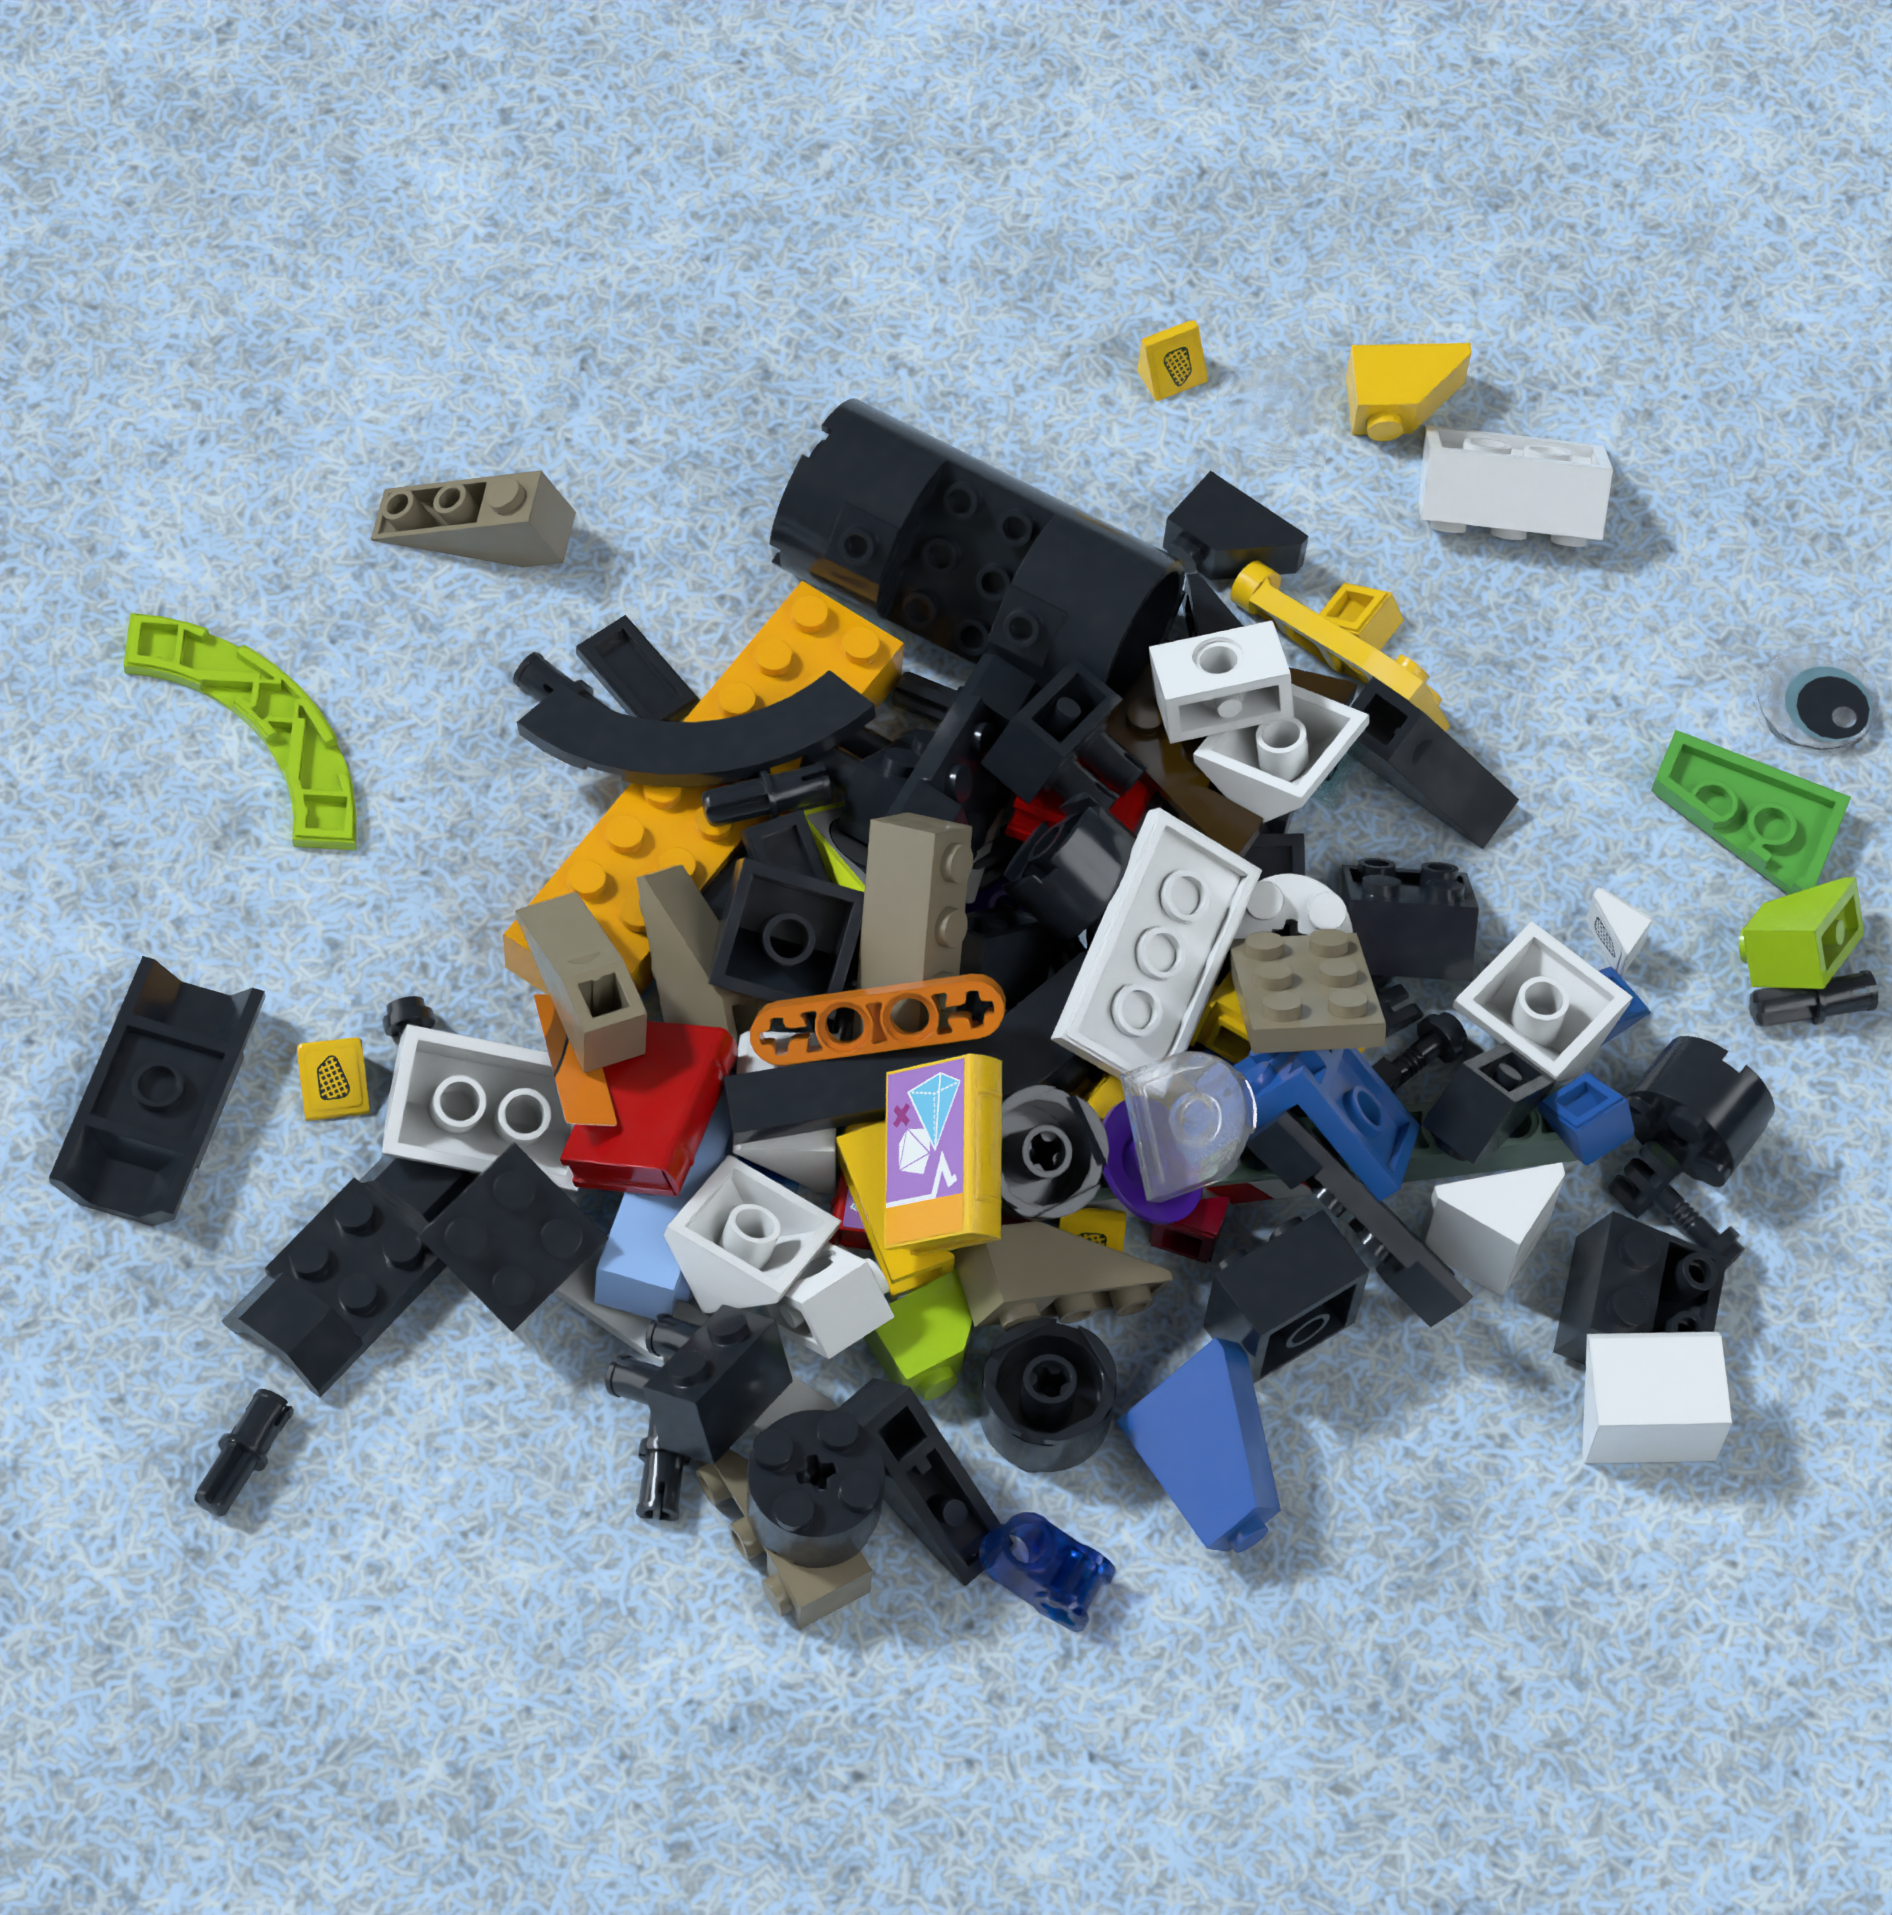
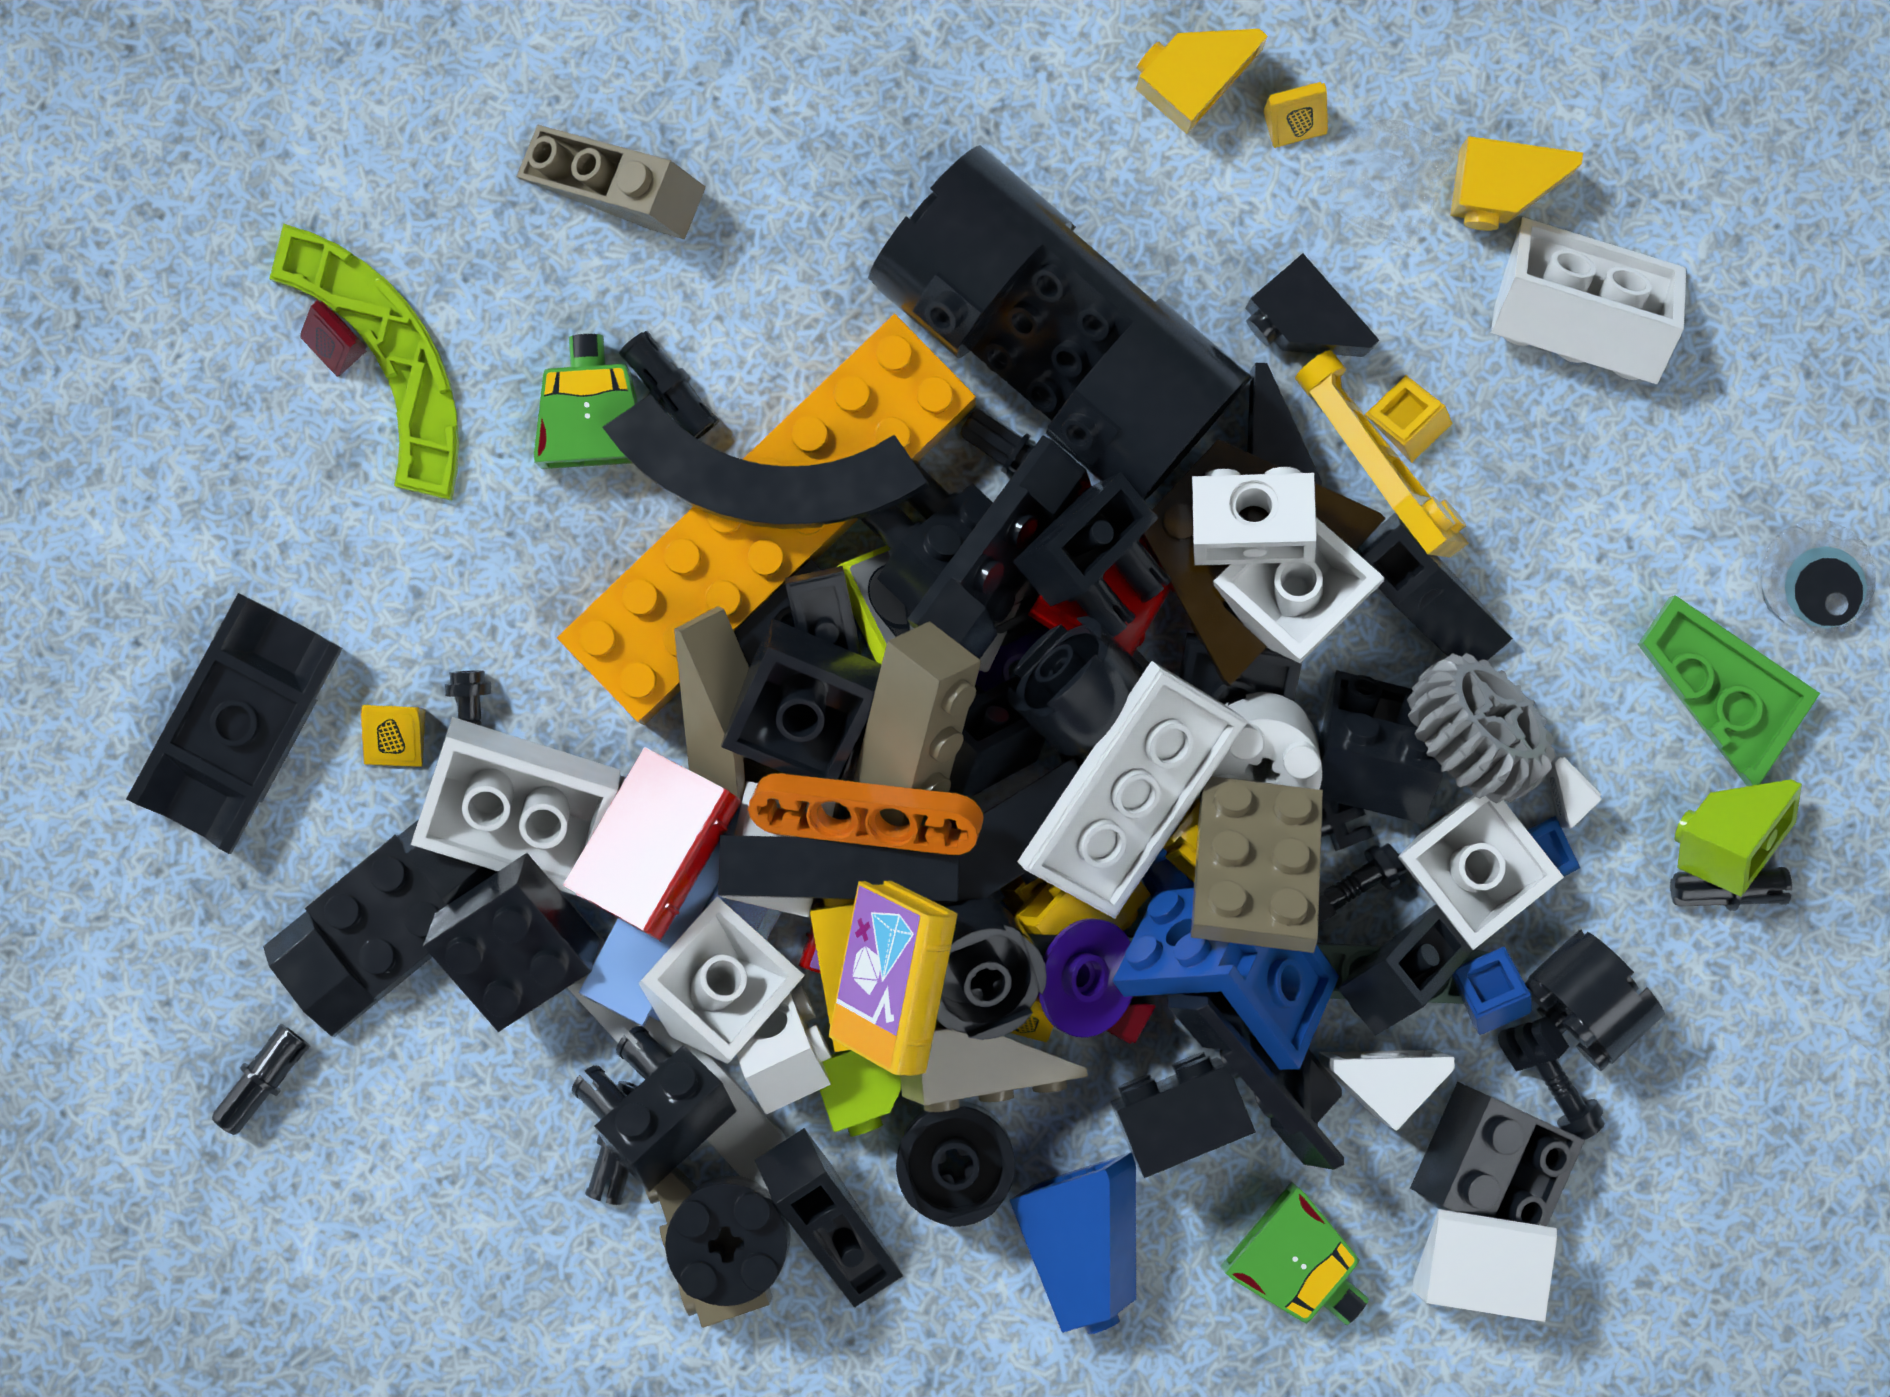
camera: 15 degrees right, 25 degrees up
(201, 707) = (331, 338): none -> dark red slope
(482, 737) = (578, 404): none -> bright green torso
(581, 1094) = (594, 787): orange sticker -> none
(585, 981) = (609, 713): dark tan slope -> none
(636, 673) = (733, 367): black tile -> none
(767, 795) = (812, 549): black axle -> none
(1059, 1574) = (928, 1323): clear blue piece -> none
(1061, 336) = (1195, 71): none -> yellow slope
(1187, 1121) = (1122, 970): clear tile -> none
(1449, 1440) = (1297, 1261): none -> bright green torso
(1507, 867) = (1481, 728): none -> light grey gear

